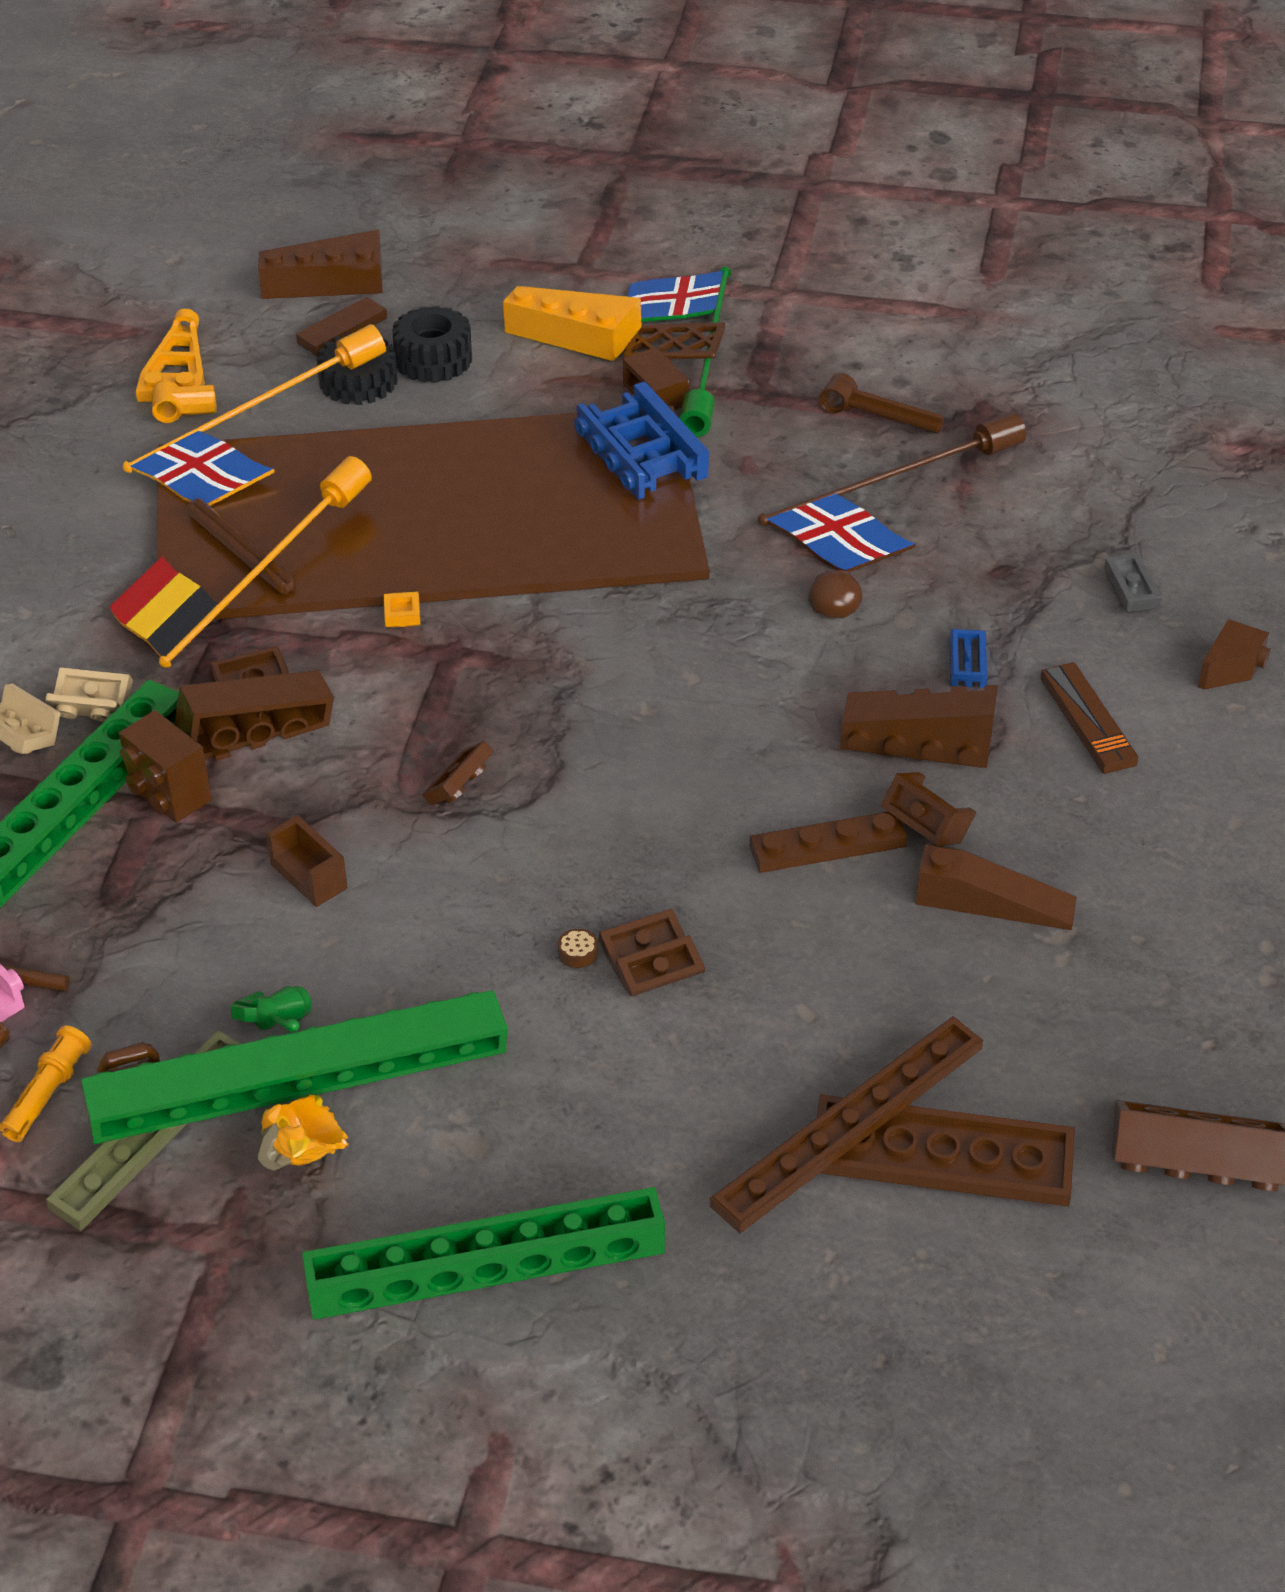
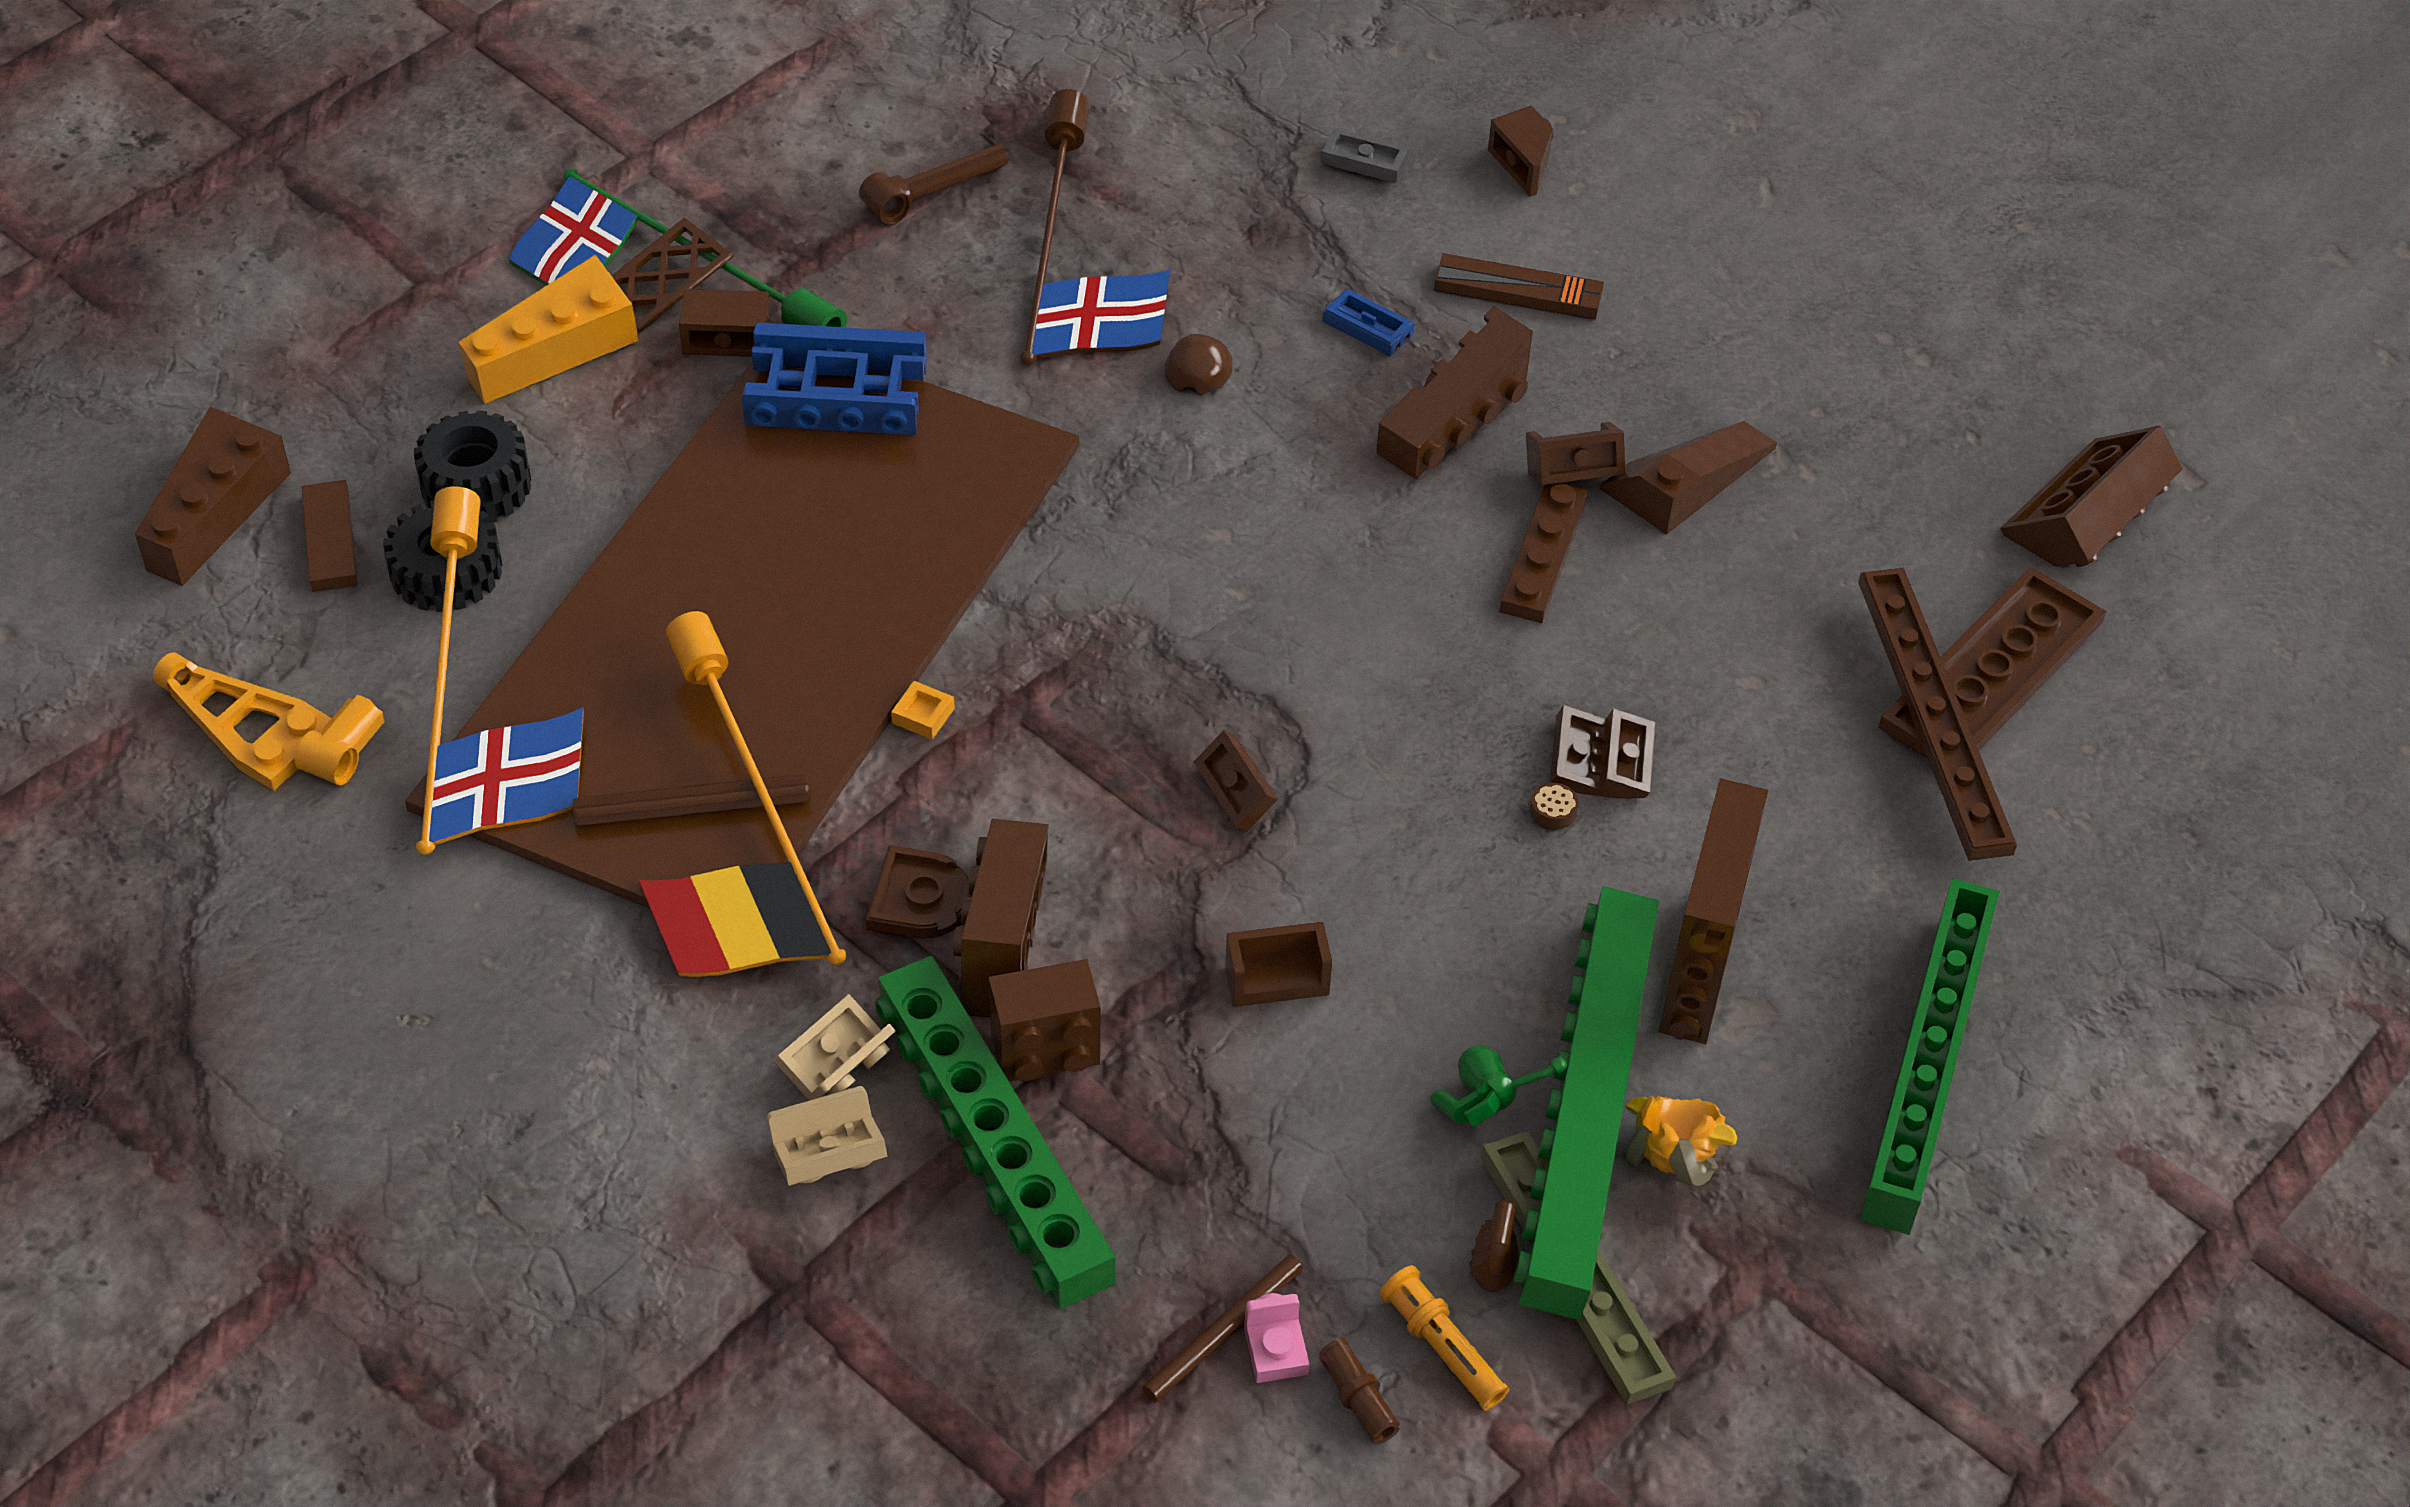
camera: 60 degrees left, 5 degrees up
(492, 1090) = (1712, 911): none -> reddish brown window

